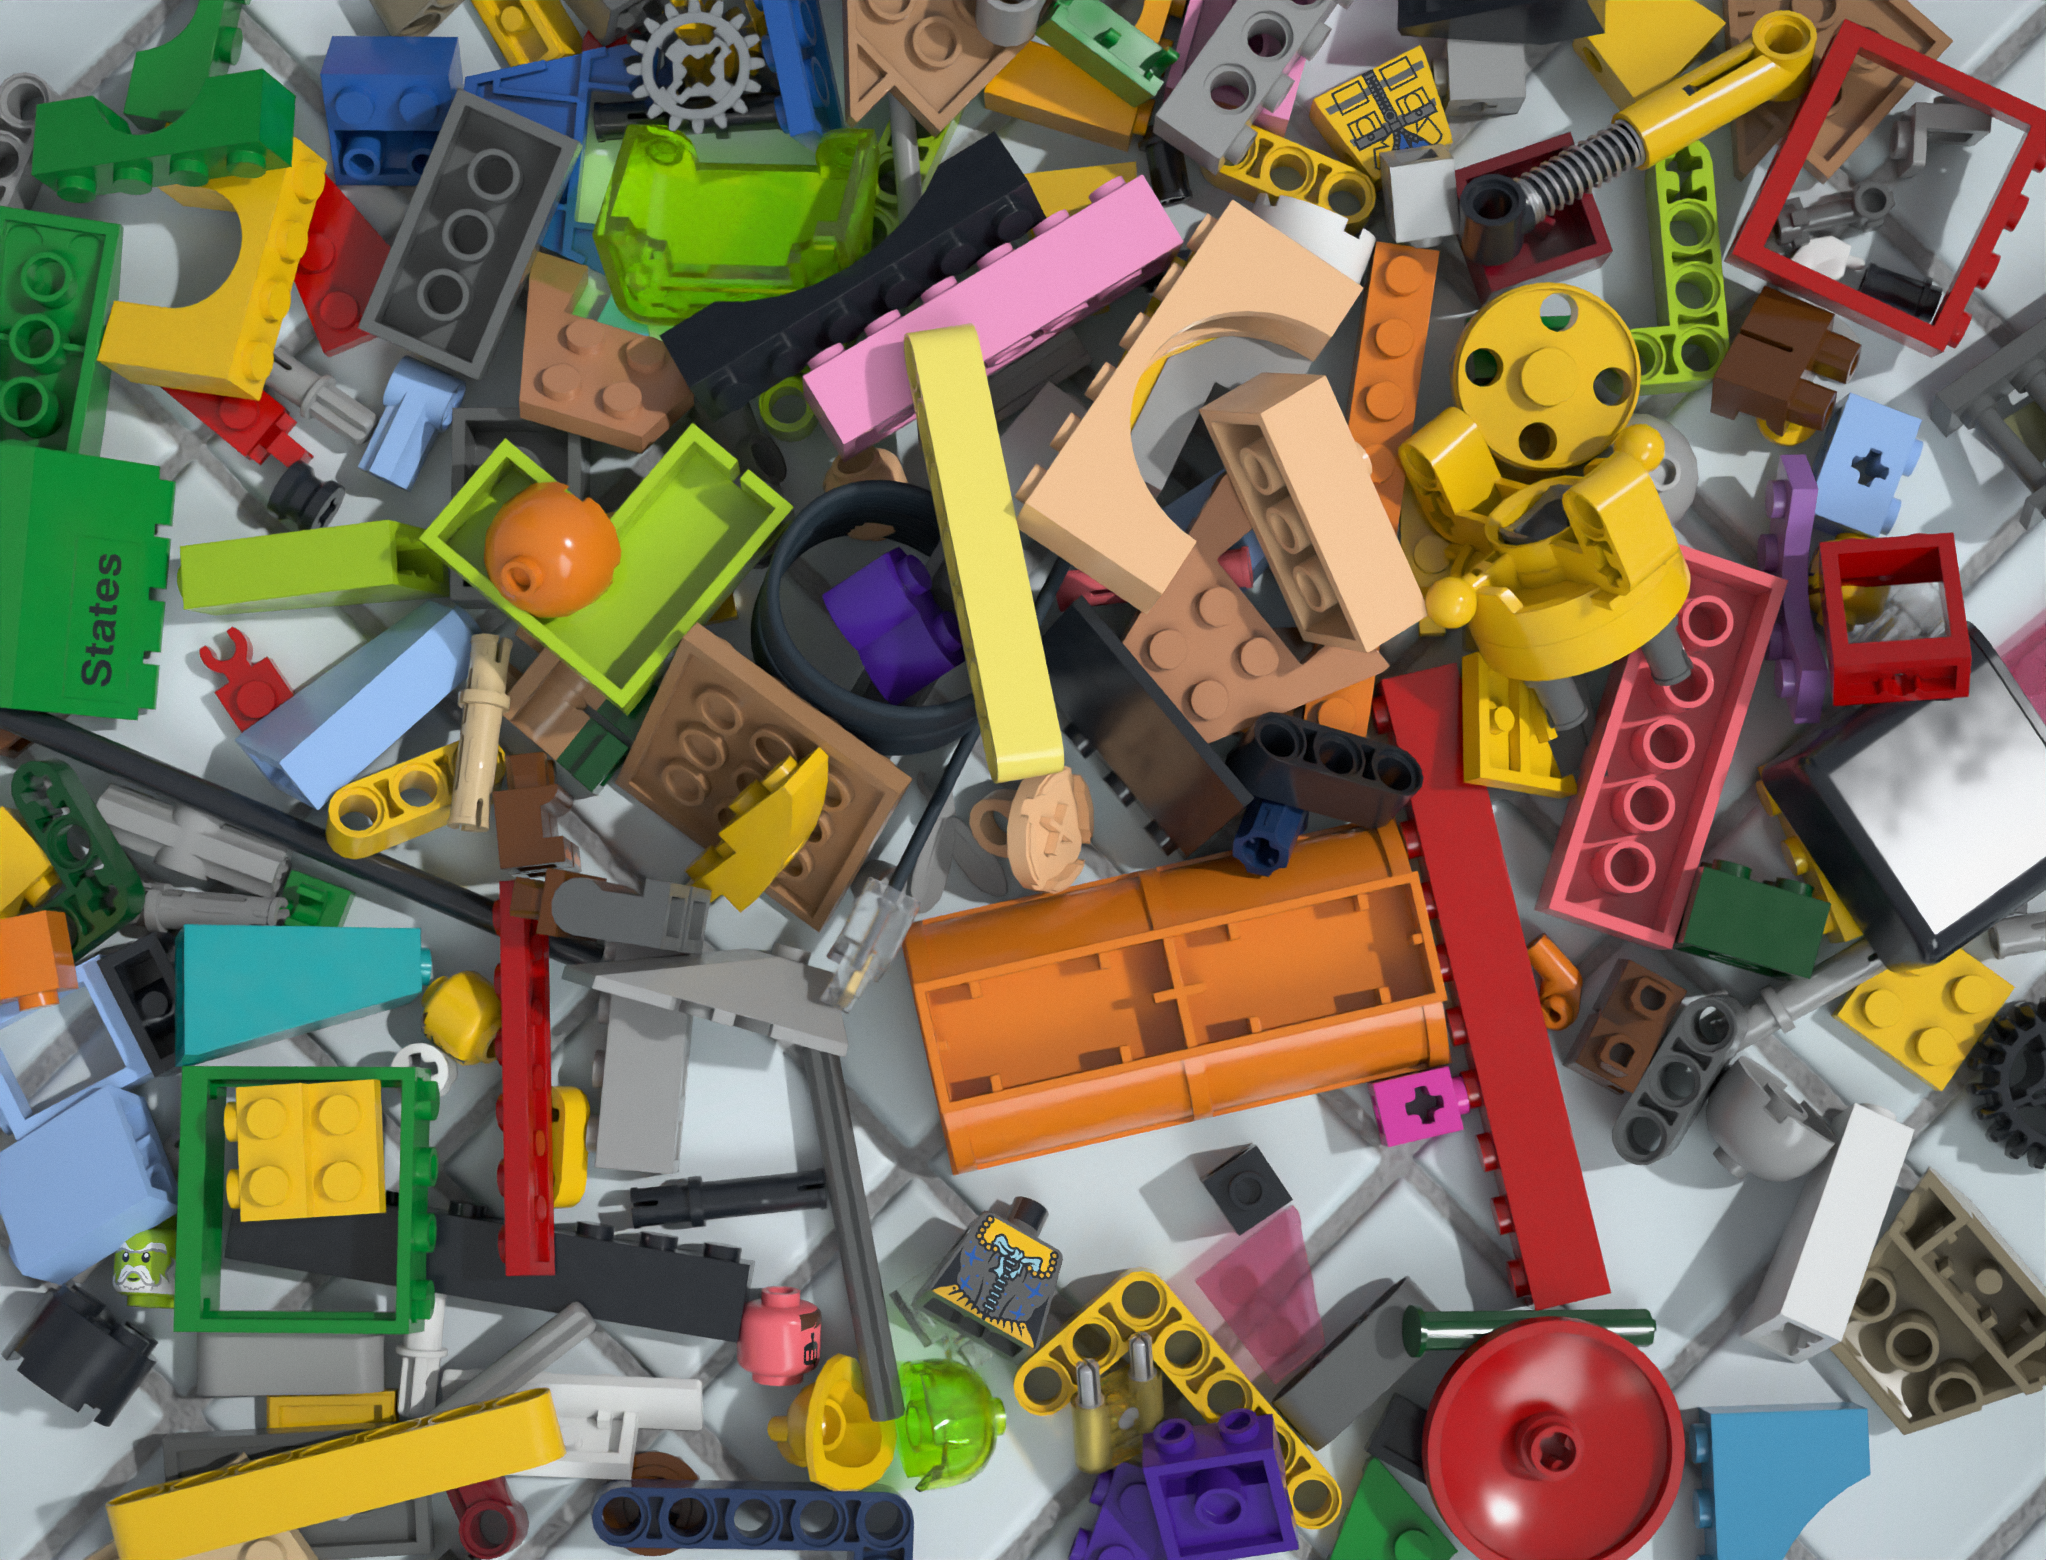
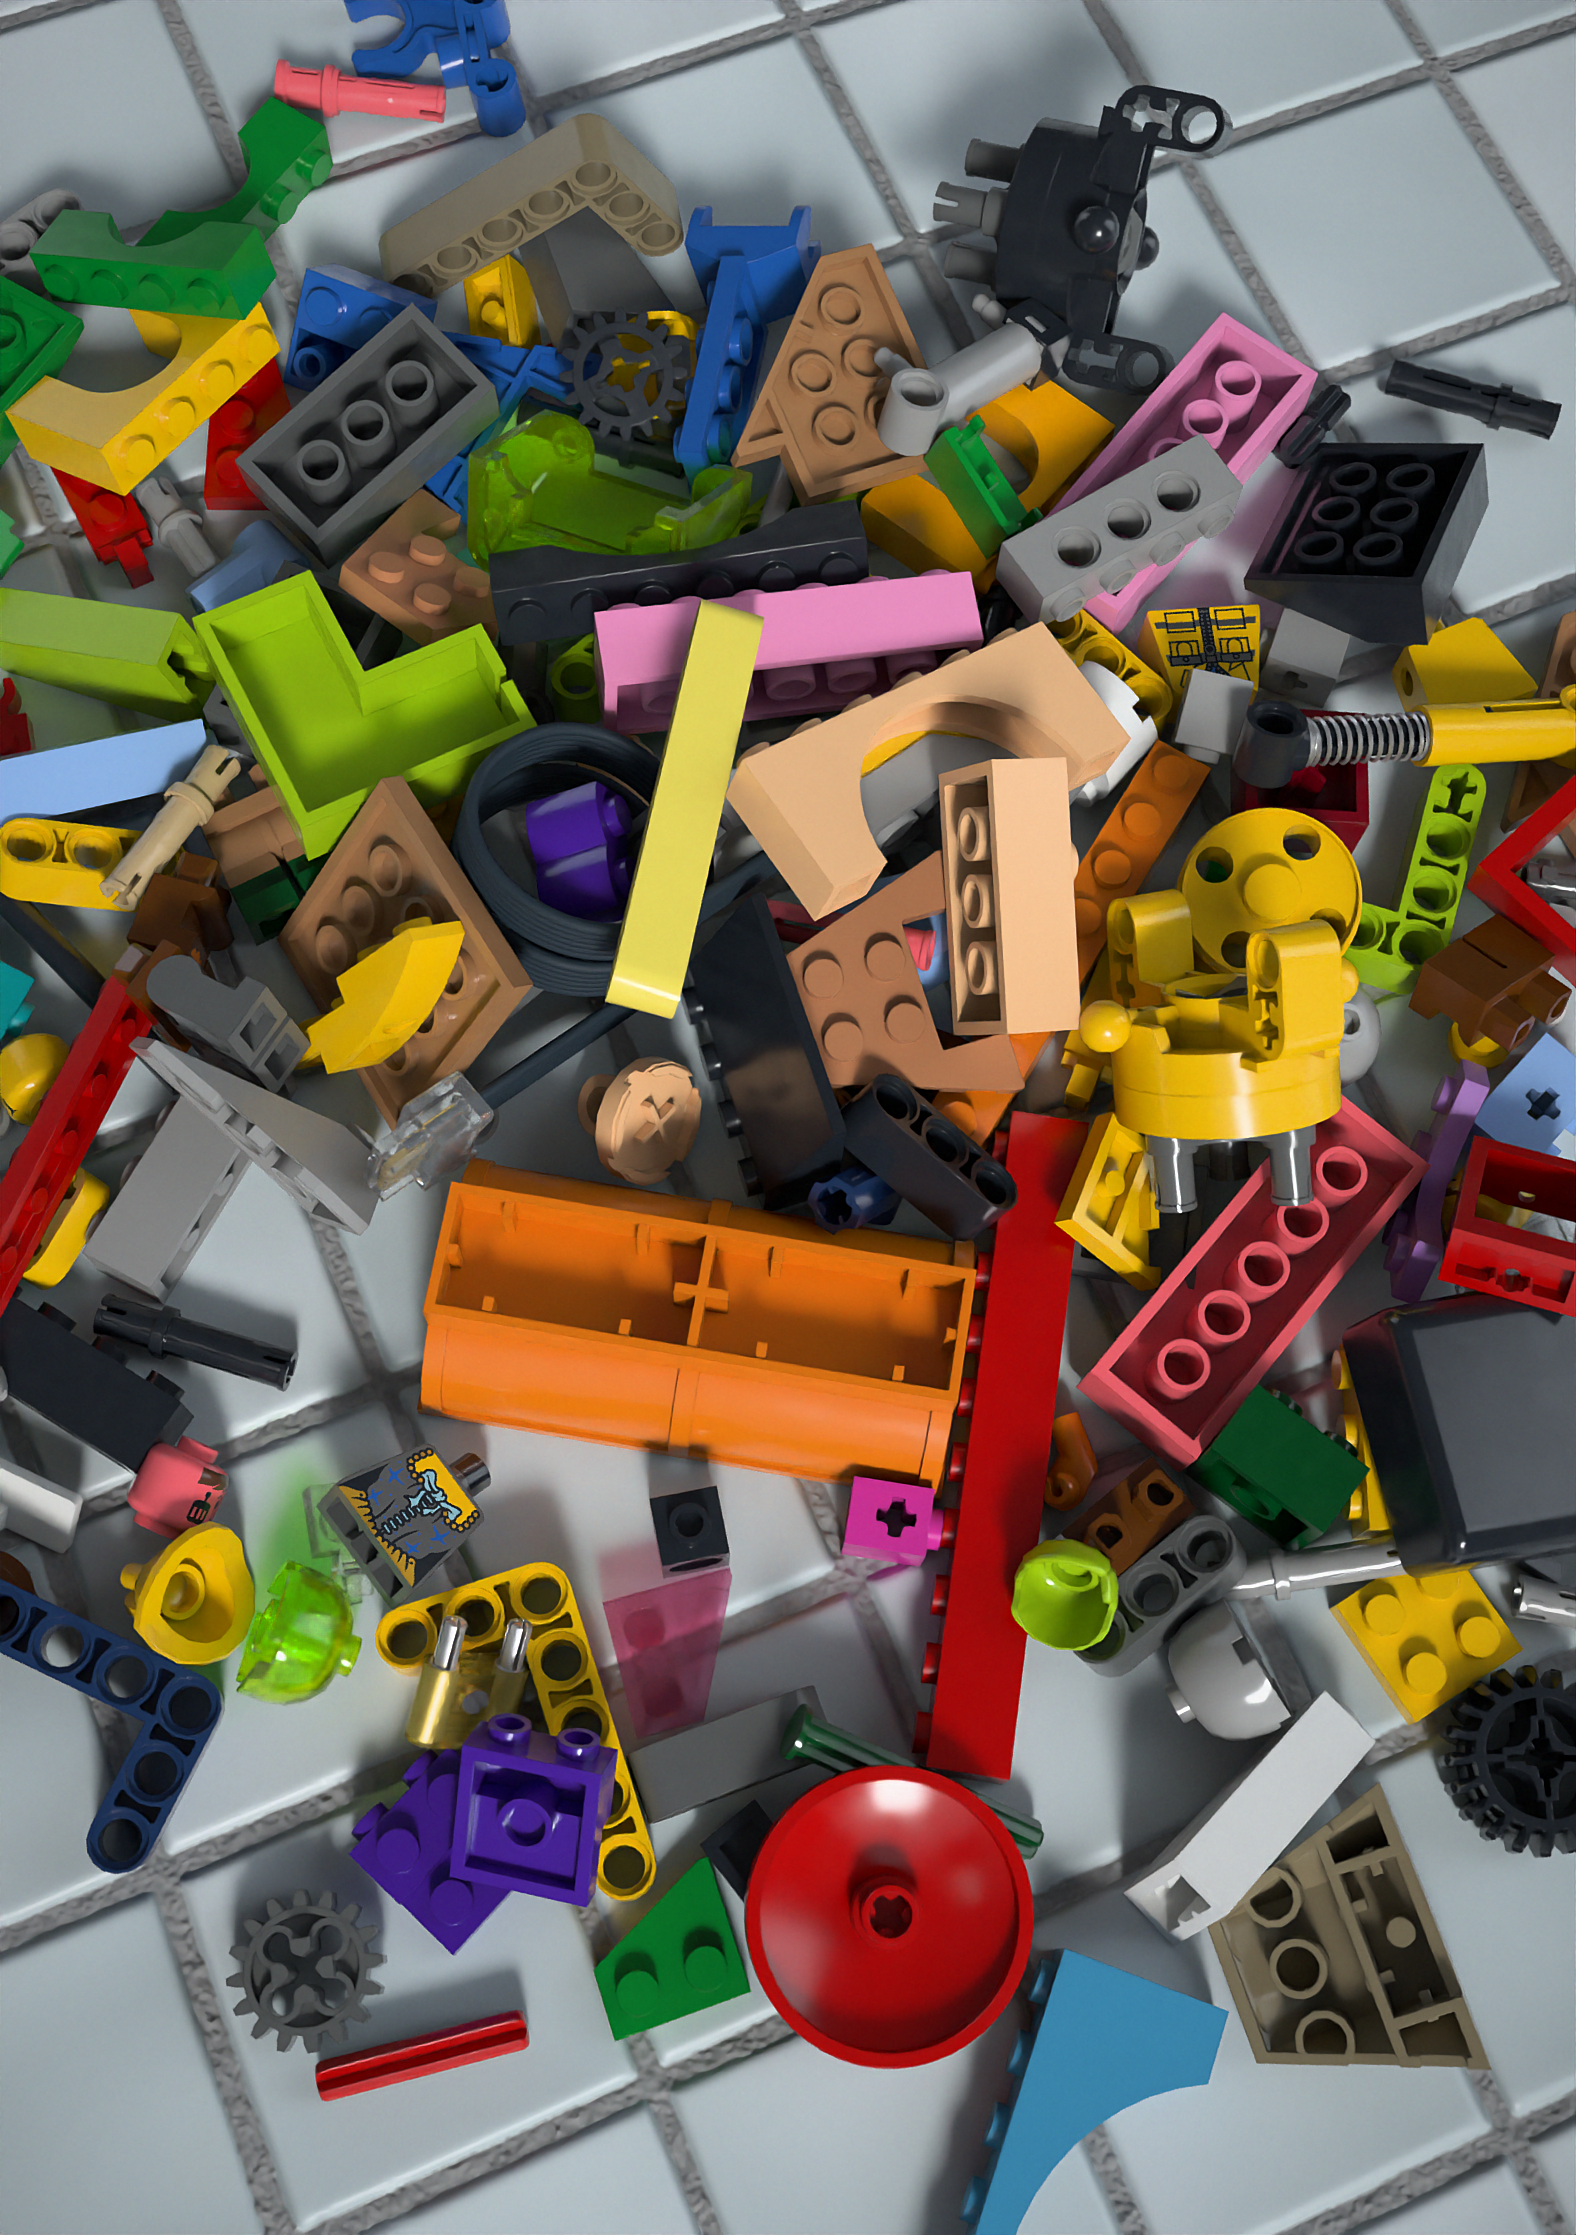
camera: 15 degrees right, 15 degrees down
(305, 498) = (125, 586): black wheel -> none
(551, 551) = (303, 676): orange cylinder -> none
(854, 1235) = (295, 1424): dark grey axle -> none
(947, 840) = (553, 1106): light grey piece -> none
(1602, 1120) = (1065, 1594): none -> lime hair

